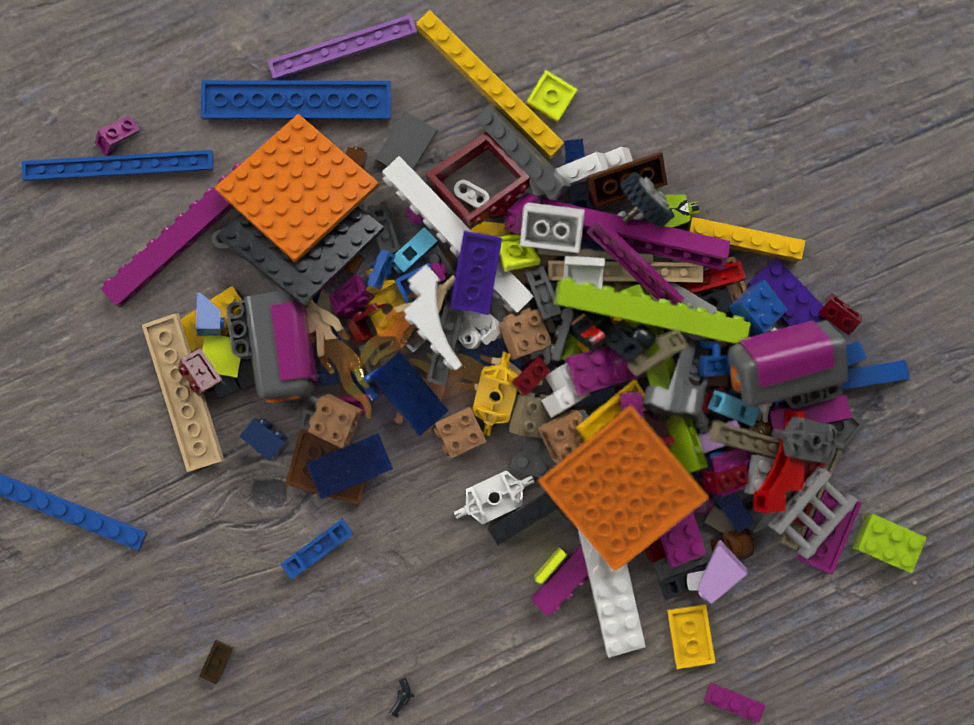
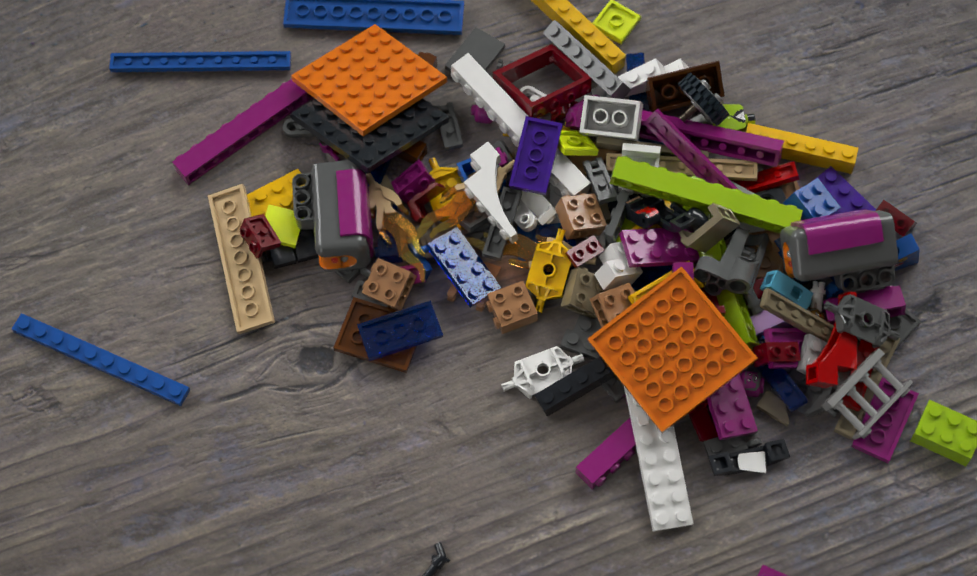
camera: 10 degrees right, 20 degrees down
(114, 133) = (195, 34): magenta bracket -> none
(208, 318) = (273, 189): slope -> none
(216, 662) = (247, 515): dark brown plate -> none
(265, 439) = (317, 302): dark blue brick -> none
(317, 549) = (361, 411): blue slope -> none
(381, 269) = (444, 154): blue plate -> none
(414, 251) = (474, 141): medium azure brick -> none
(549, 566) = (596, 434): neon yellow tile -> none
(691, 636) = (741, 516): yellow plate -> none
(715, 363) = (766, 248): blue plate -> none
(720, 573) = (771, 448): lavender slope -> none
(739, 544) = (790, 428): reddish brown piece -> none
(876, 374) = (929, 274): blue slope -> none

